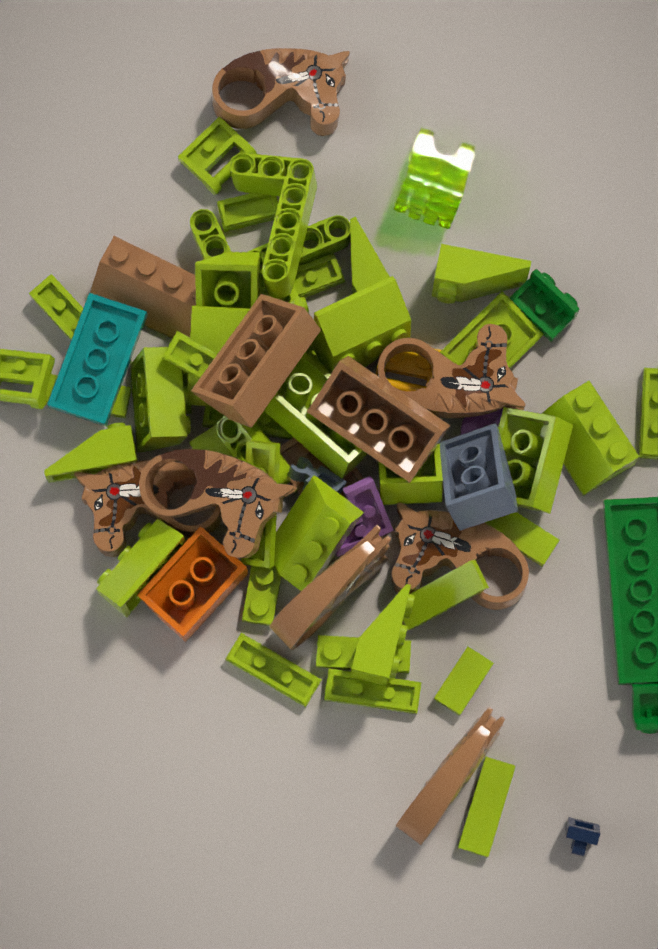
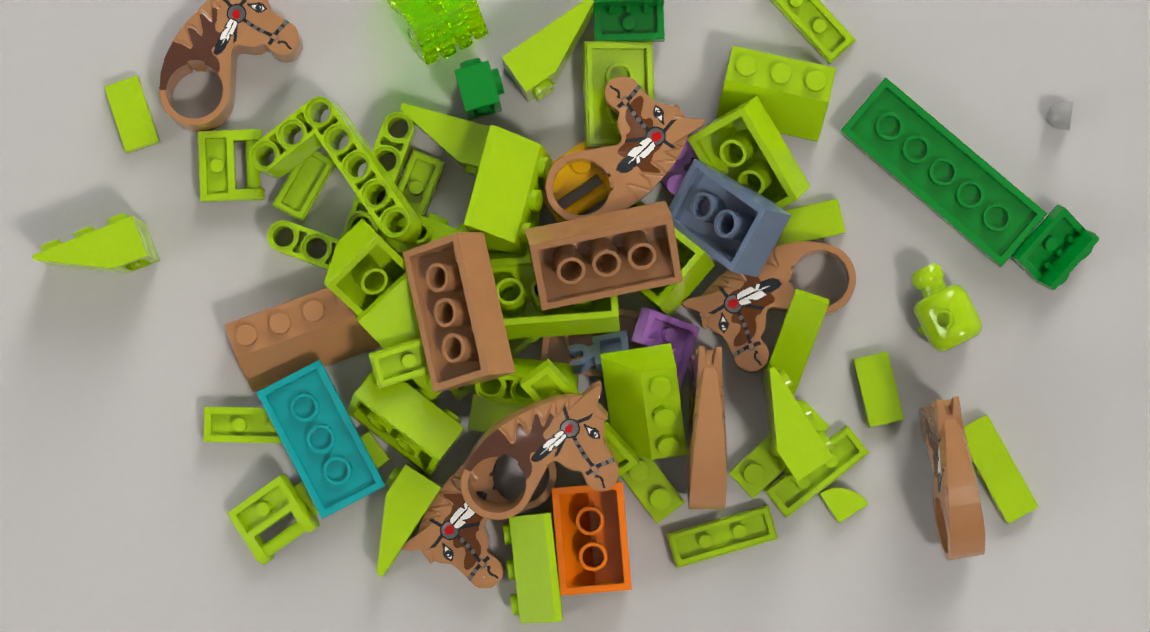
camera: 45 degrees left, 10 degrees up
(100, 130) = (118, 247): none -> lime slope
(192, 71) = (132, 114): none -> lime tile
(369, 727) = (842, 502): none -> lime tile
(409, 254) = (479, 88): none -> green brick
(554, 672) = (945, 312): none -> lime piece
(581, 833) = (1092, 414): dark blue tile -> none

